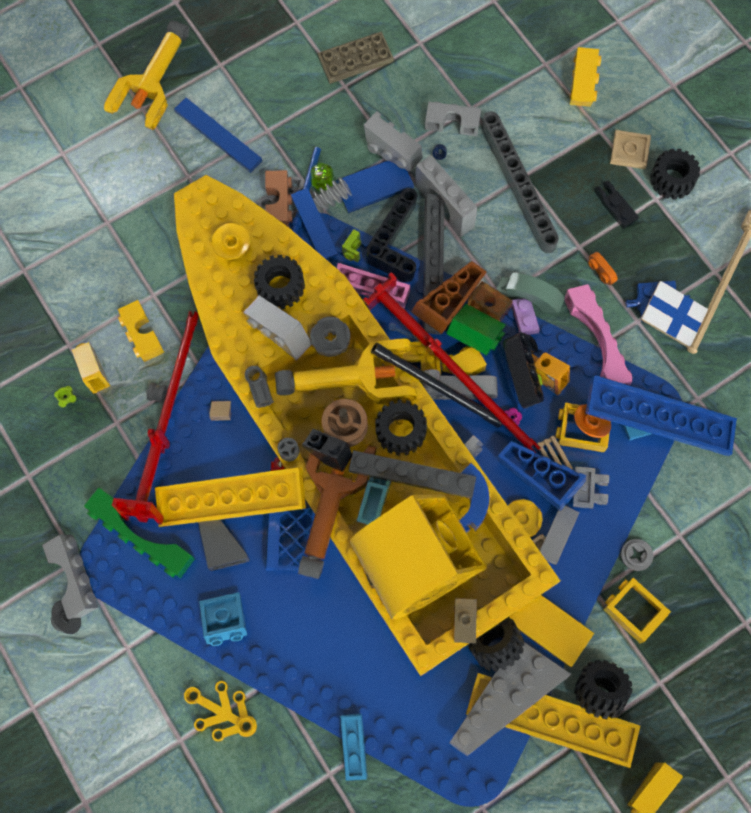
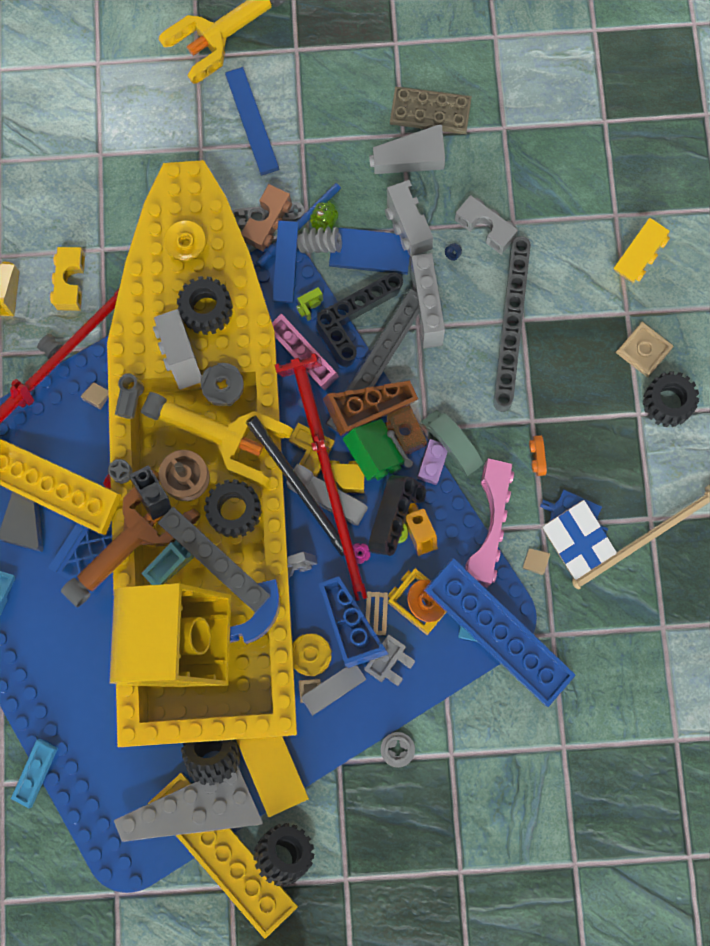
camera: 30 degrees right, 5 degrees up
(361, 95) = (410, 153): none -> light grey slope
(465, 621) = (185, 721): dark tan plate -> none
(509, 324) = (408, 462): none -> dark grey hinge
(616, 205) = (594, 400): black hinge -> none
(649, 628) = (369, 822): yellow window -> none
(651, 349) = (536, 561): none -> tan slope

